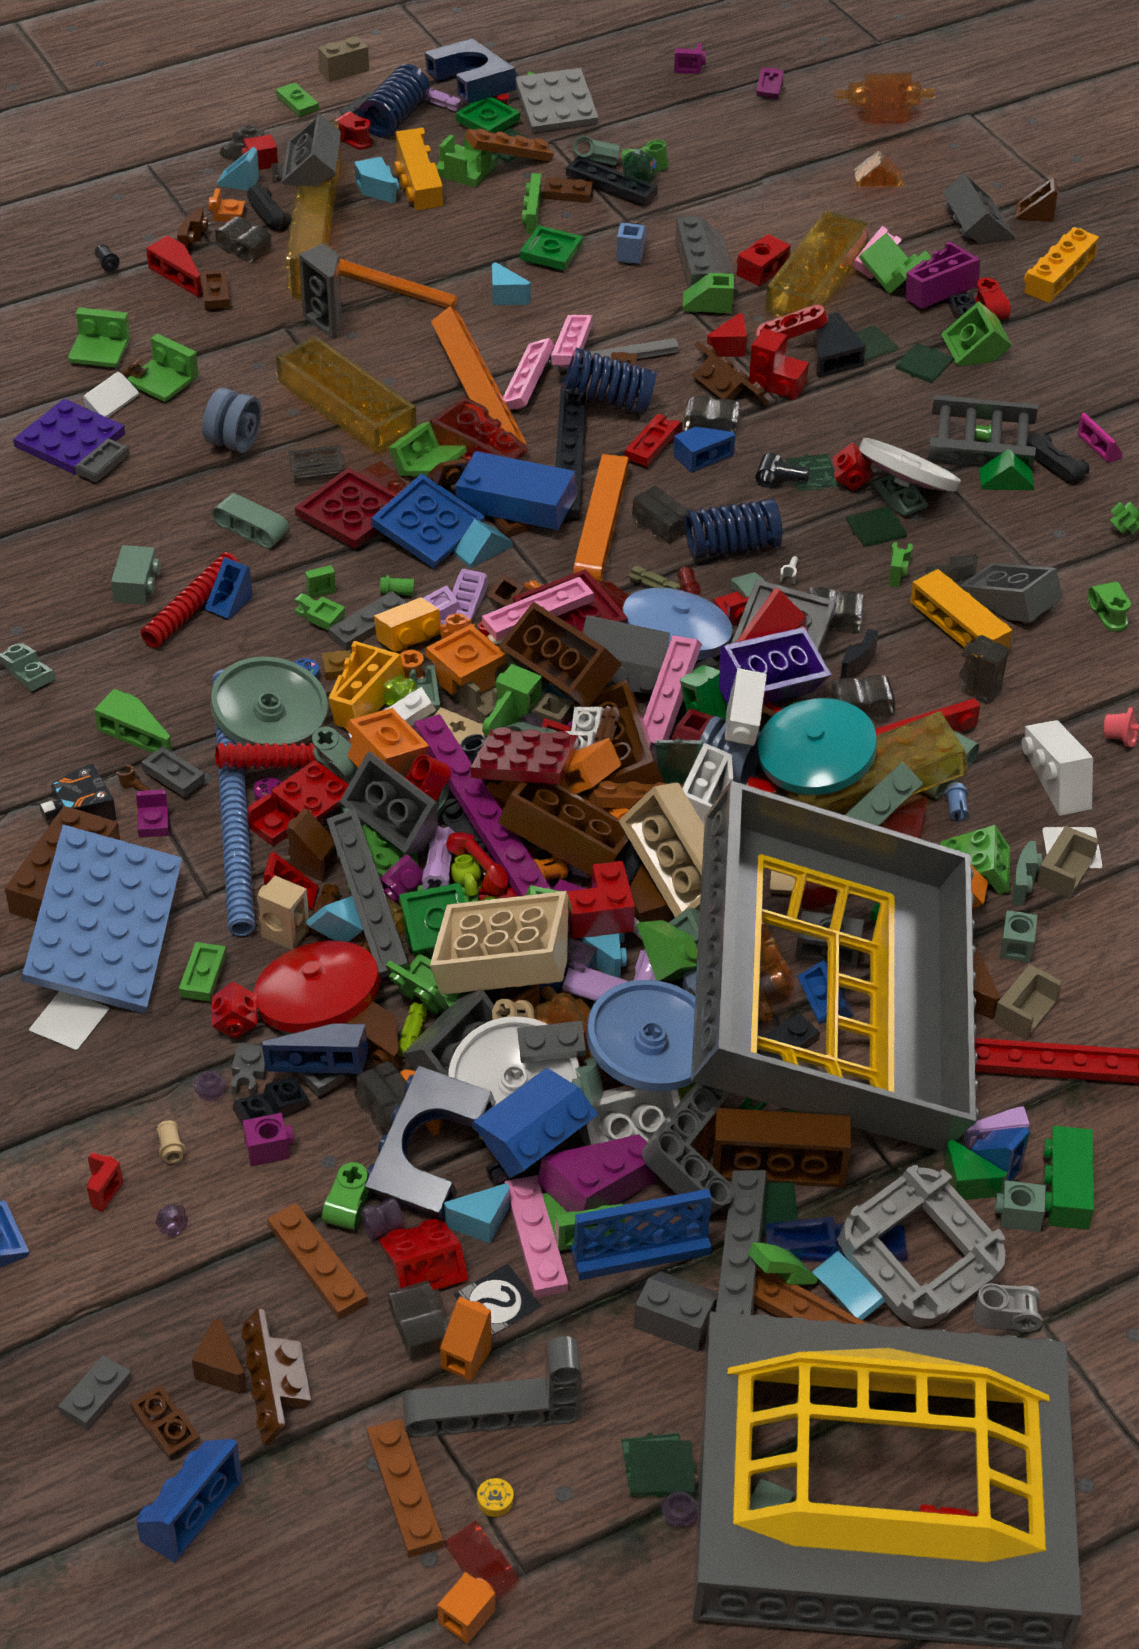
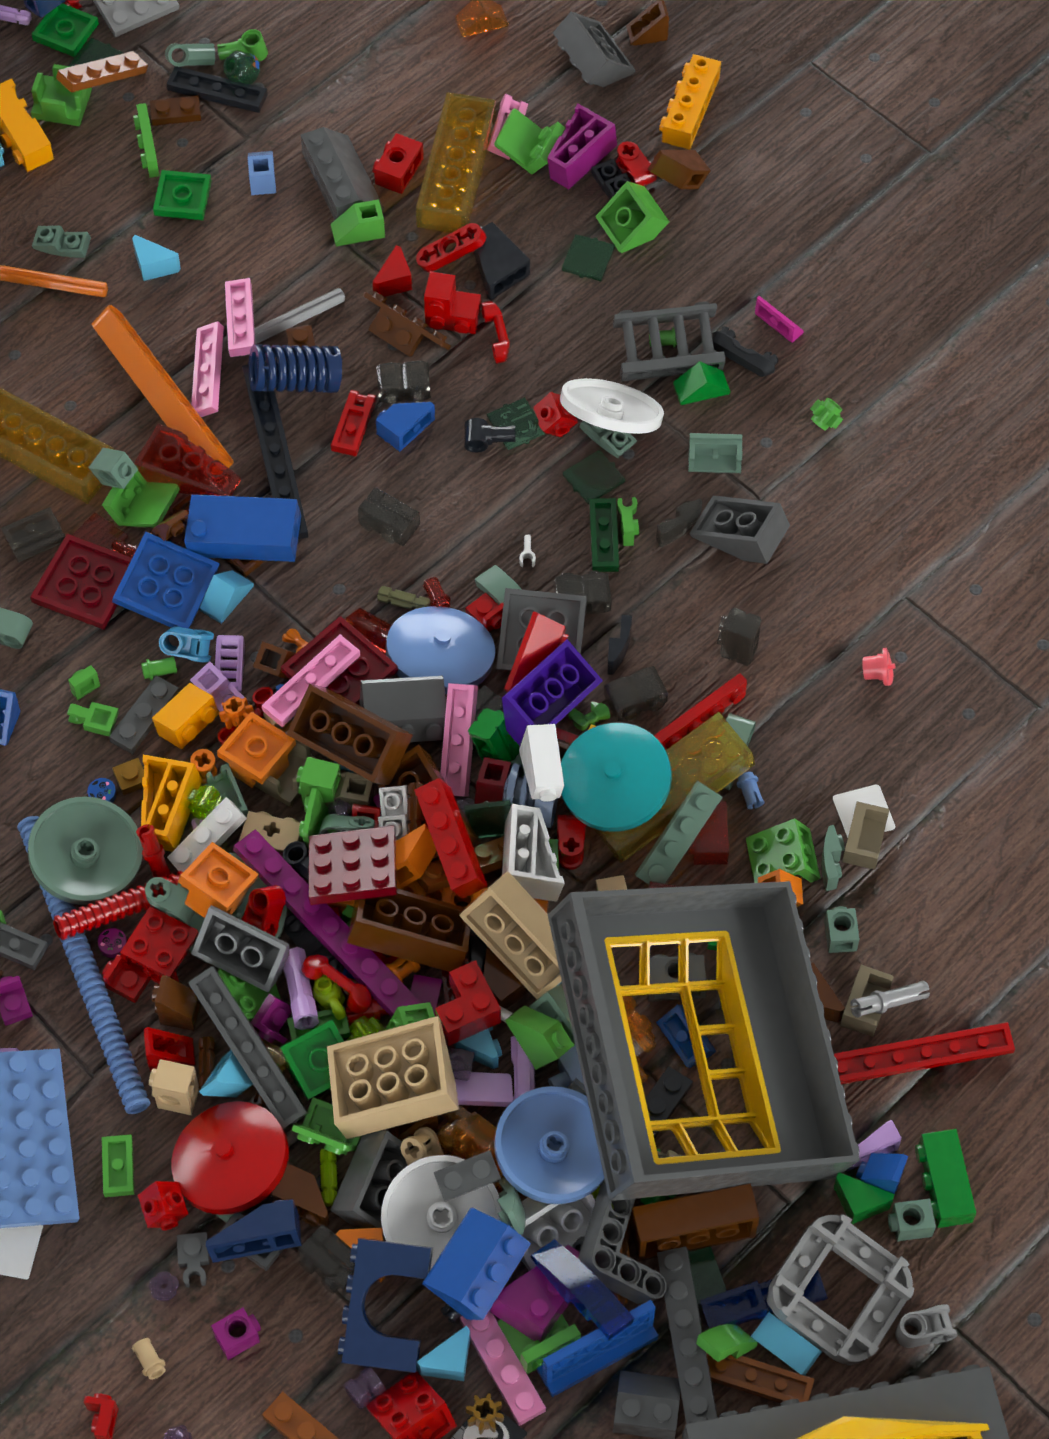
camera: 15 degrees left, 15 degrees up
(278, 1097) = (226, 1292): black slope -> none
(334, 711) = (153, 851): none -> red pin
(347, 1197) = (327, 1379): bright green piece -> none
(408, 418) = (113, 468): none -> sand green brick
(422, 261) = (57, 242): none -> sand green slope
(433, 570) = (192, 643): none -> dark azure piece
(500, 1271) = (479, 1406): none -> pearl gold gear
(602, 515) = (331, 536): orange beam -> none
(630, 751) = (451, 838): none -> red brick
(639, 1165) = (582, 1288): none -> clear blue slope
(733, 533) = (463, 526): dark blue piece -> none
(816, 384) = (492, 313): none -> red bar
(872, 568) = (604, 535): none -> dark green plate
(876, 343) = (533, 242): clear green piece -> none
(957, 610) = (701, 572): light orange brick -> none
(1004, 527) = (715, 453): none -> sand green hinge
(1034, 306) = (680, 167): none -> reddish brown slope
(1042, 1000) = (881, 1001): none -> light grey pin
(1060, 765) = (834, 727): white wedge -> none
(1110, 605) = (835, 523): bright green piece -> none

